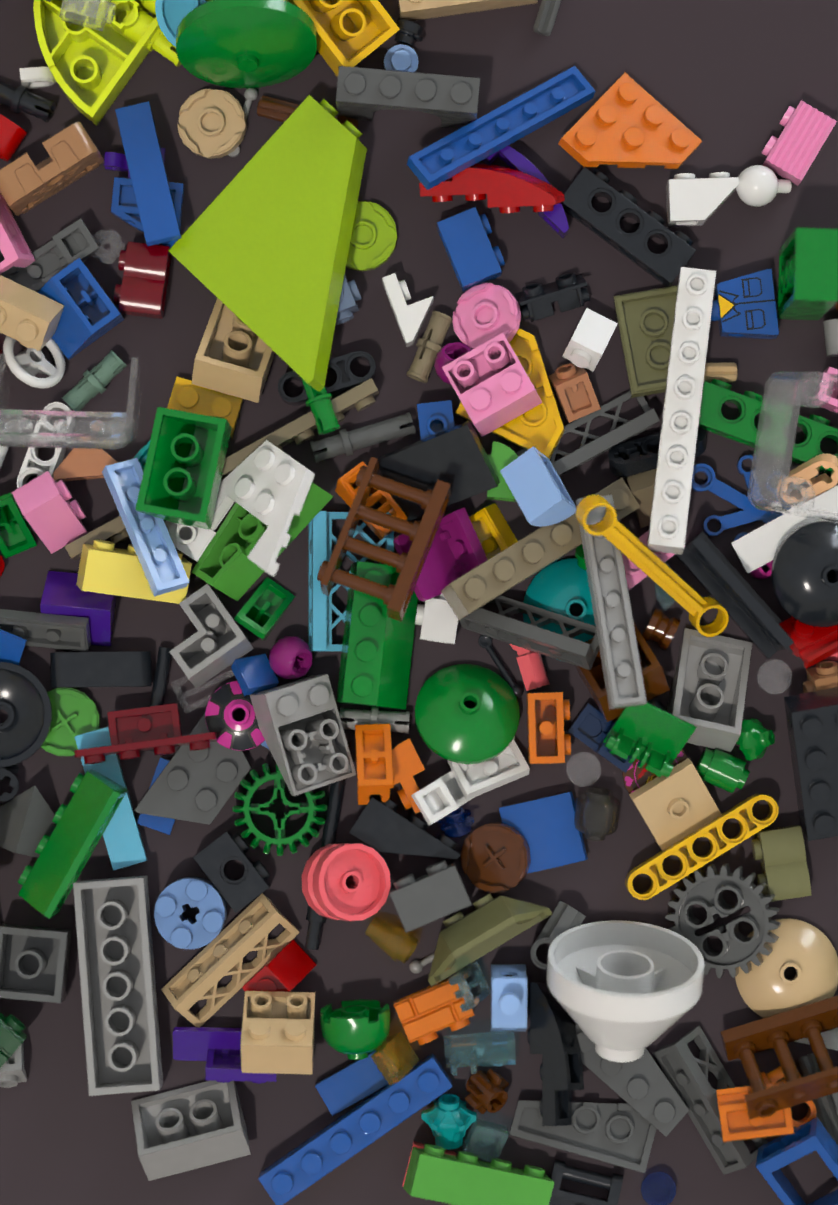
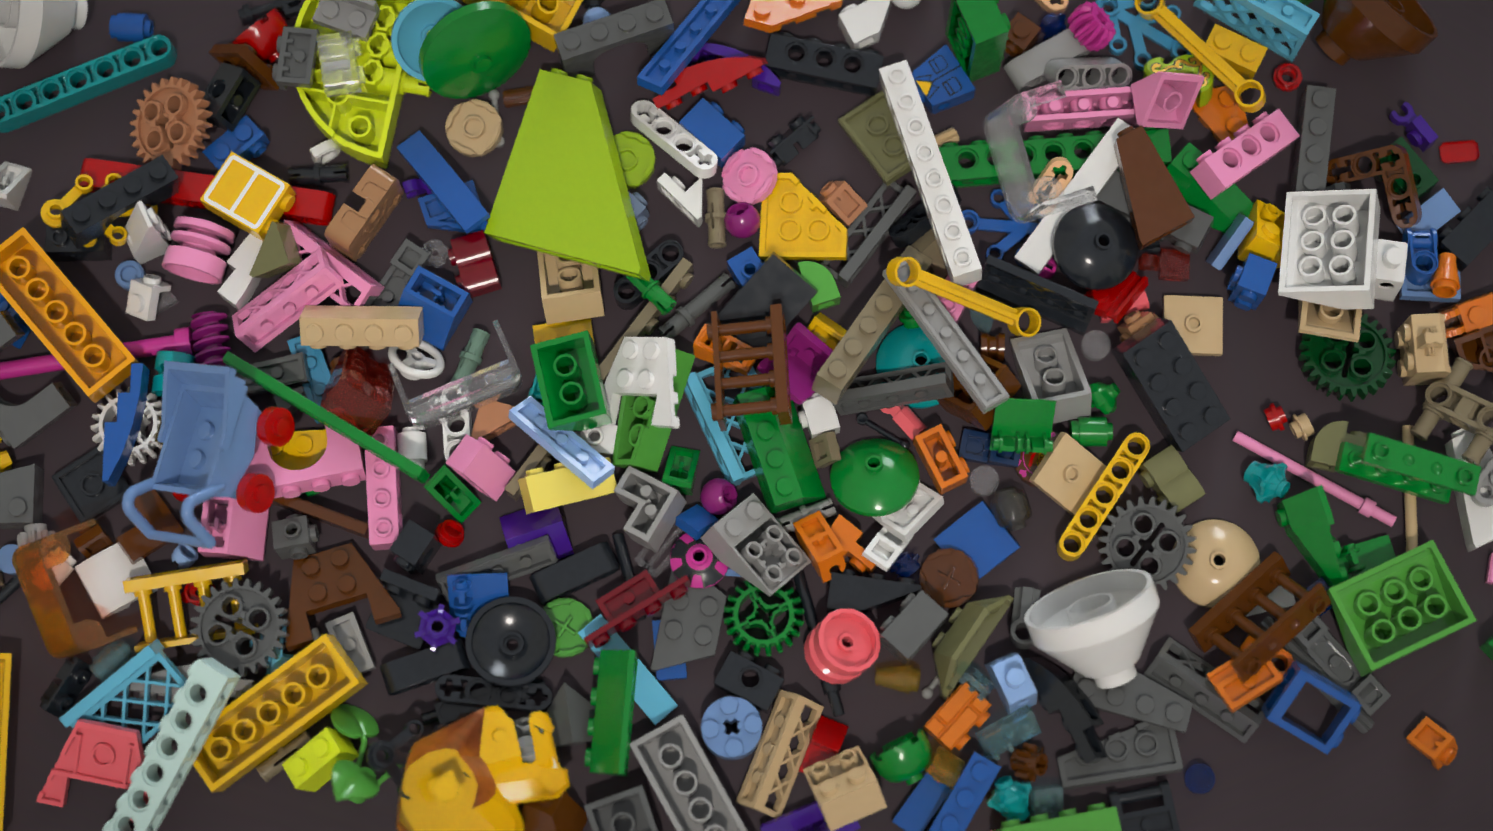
camera: 25 degrees left, 10 degrees down
(417, 239) = (677, 136): none -> white beam
(428, 658) = (825, 449): none -> dark tan plate
(492, 384) = (778, 219): bright pink slope -> none
(538, 489) = (849, 278): light blue brick -> none
(589, 340) = (835, 157): white brick -> none

